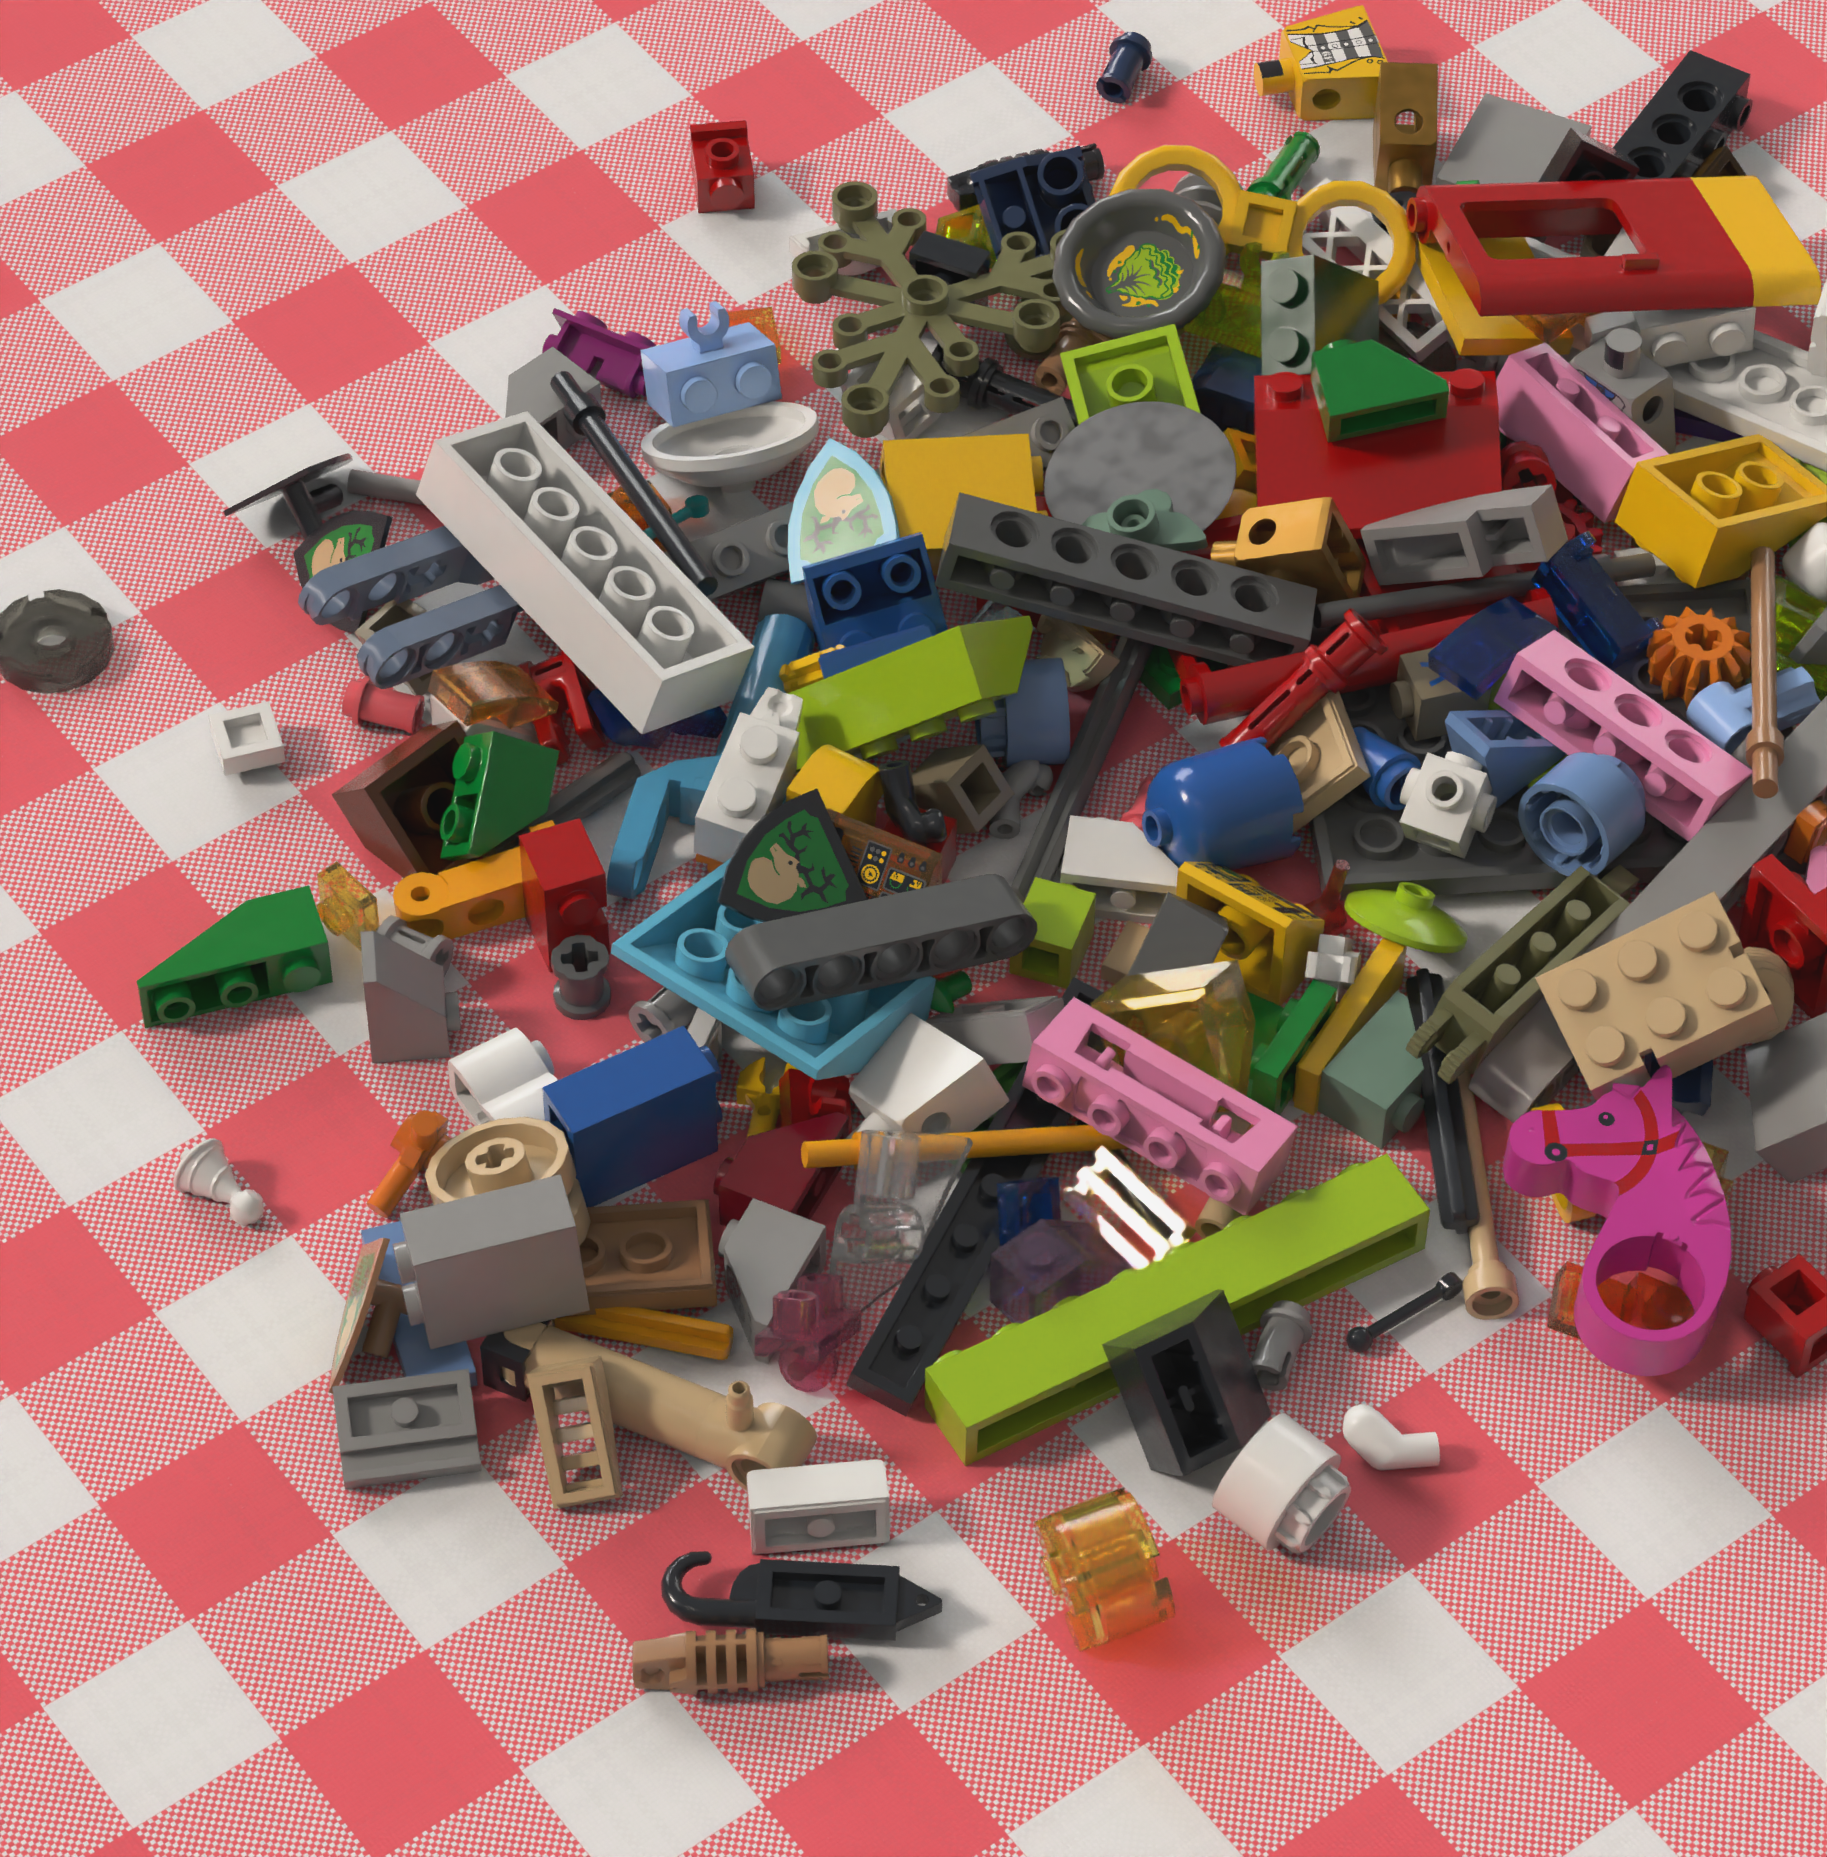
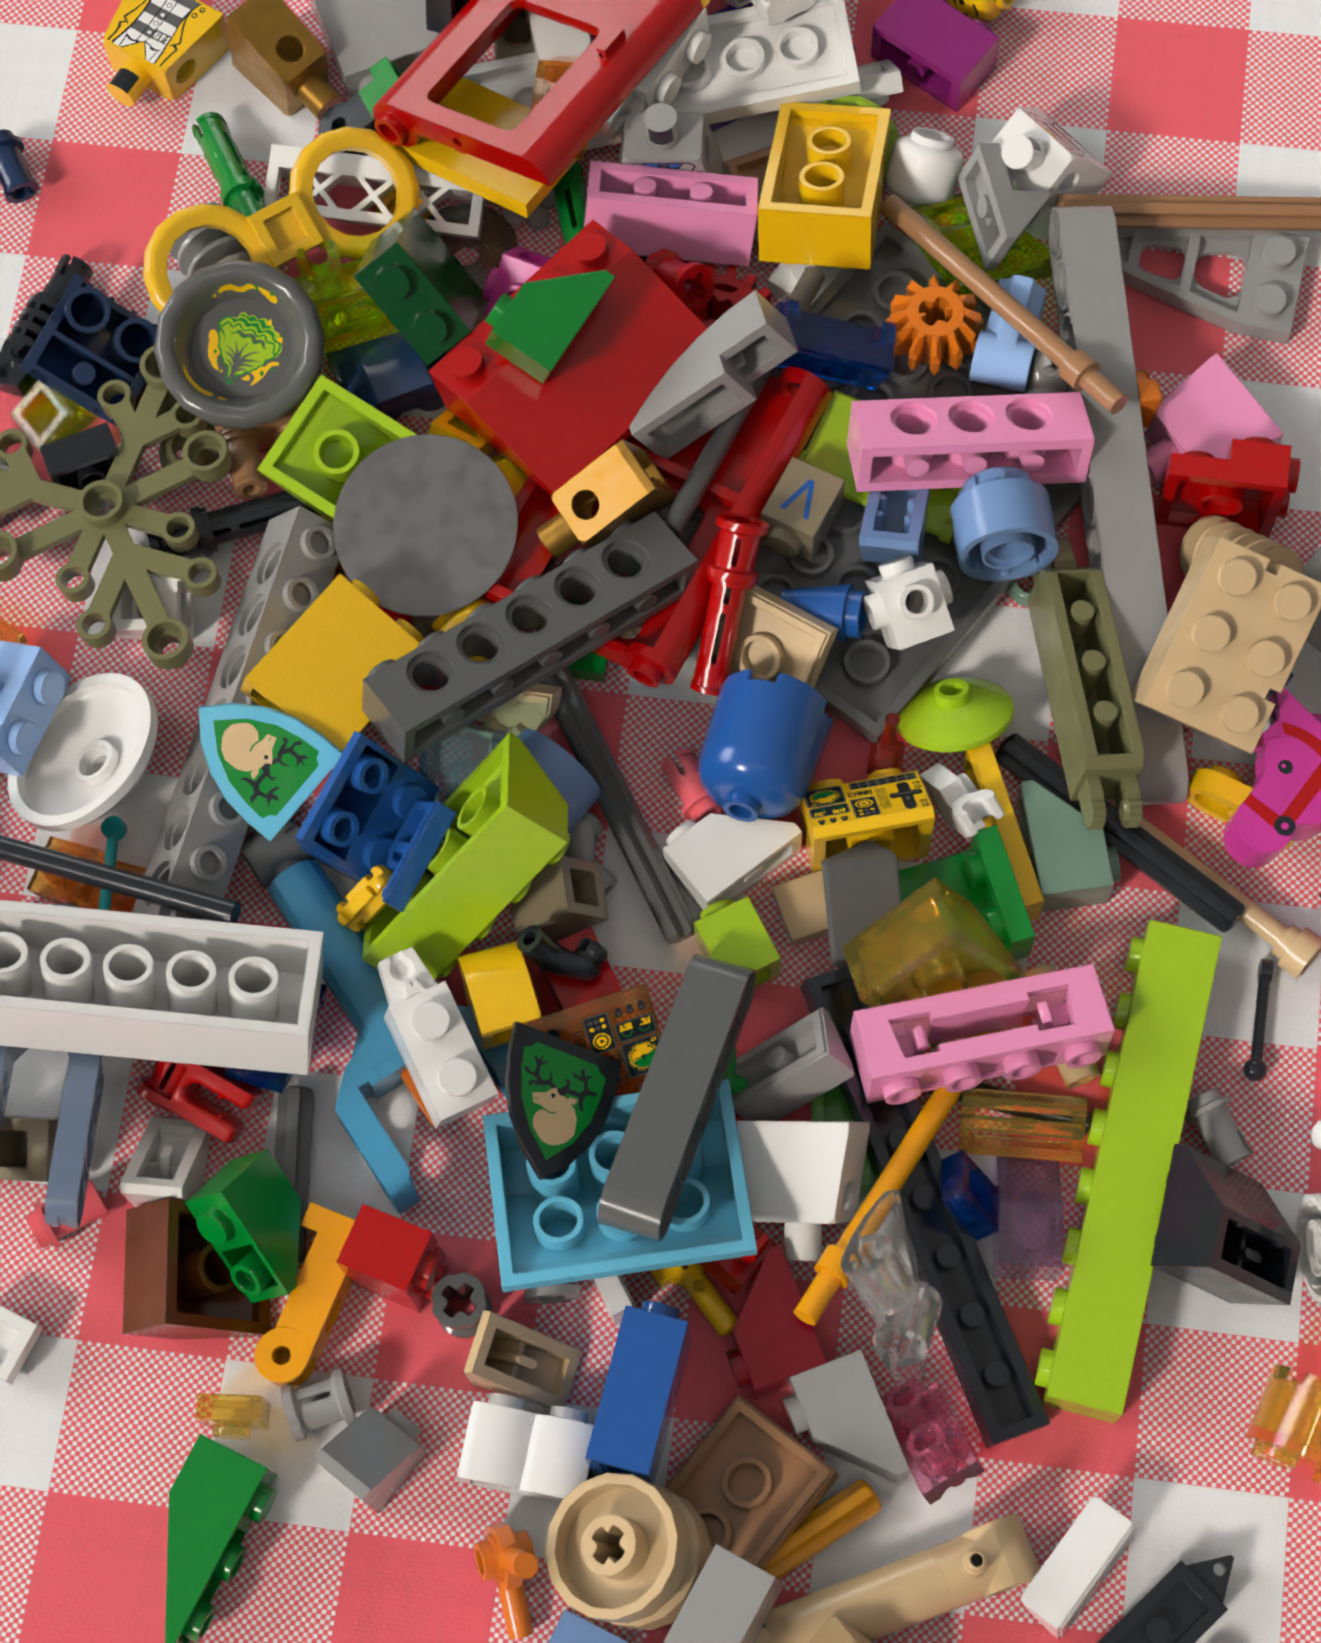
camera: 40 degrees left, 20 degrees up
(488, 690) = (168, 1150): clear orange slope -> none
(571, 1021) = (521, 1362): none -> tan slope
(1151, 520) = (476, 569): sand green animal -> none
(1486, 645) = (823, 451): clear blue slope -> none

